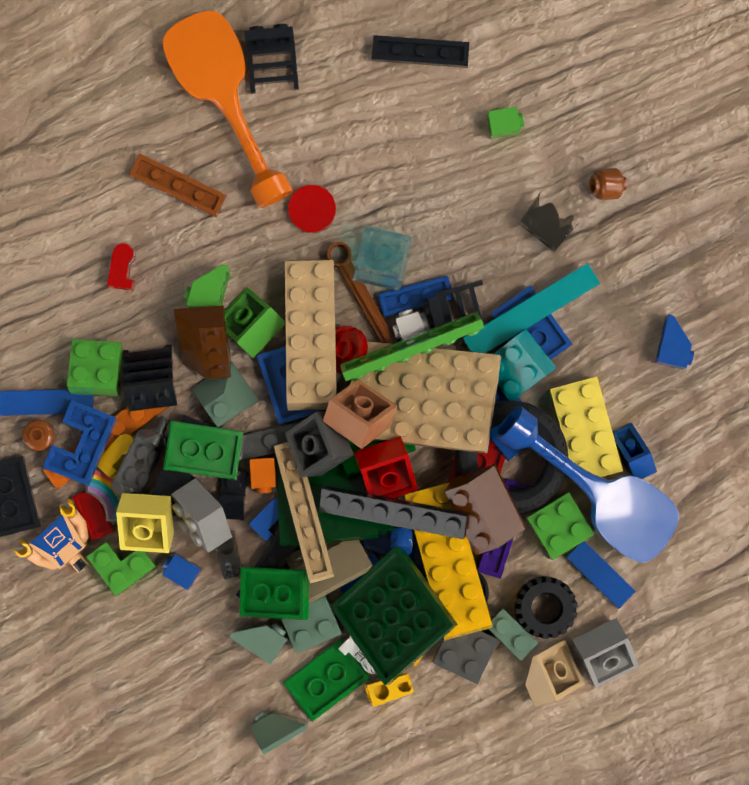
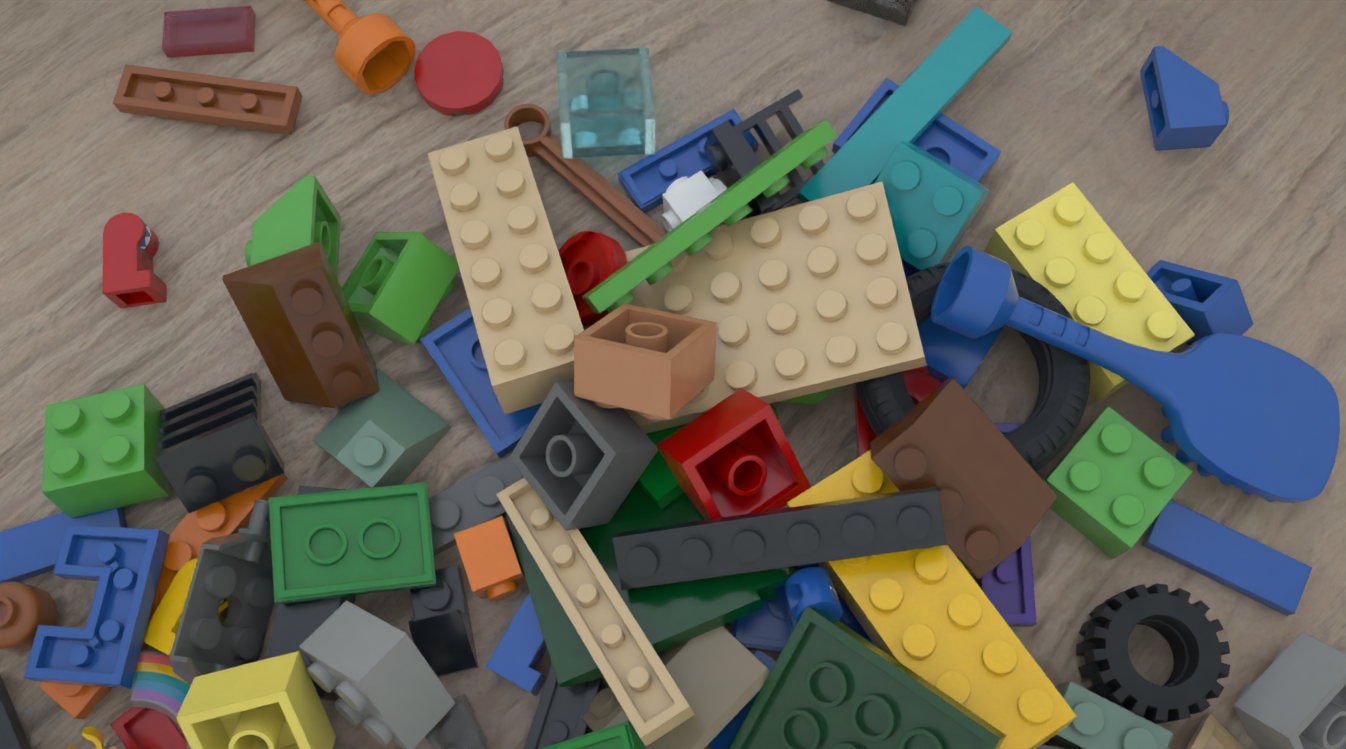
camera: 10 degrees left, 15 degrees down
(185, 141) = (208, 31): none -> tile

